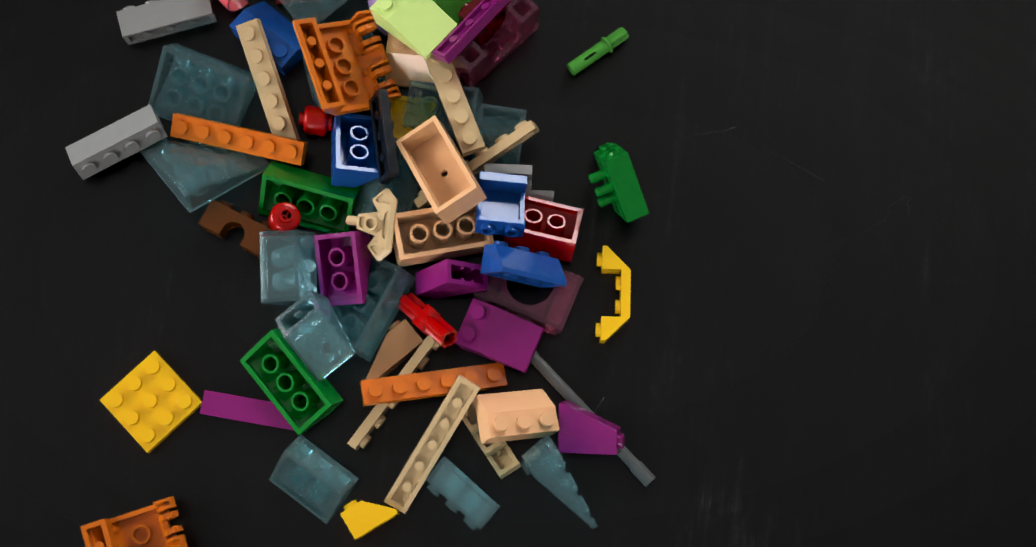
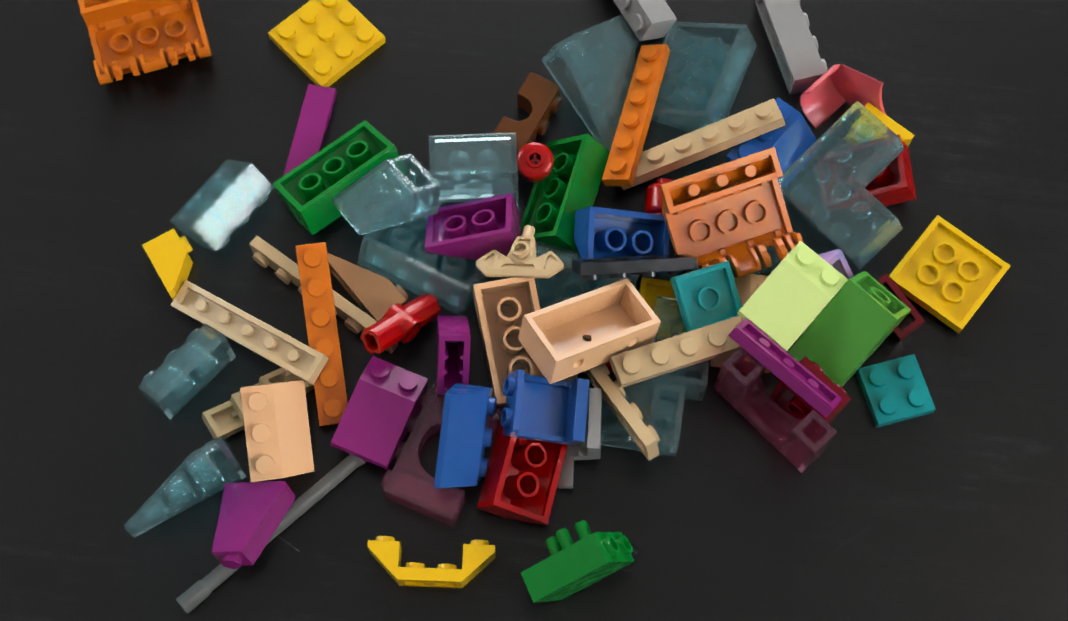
camera: 90 degrees right, 10 degrees down
(409, 83) = (706, 296): none -> teal plate
(606, 45) = (774, 552): bright green axle -> none

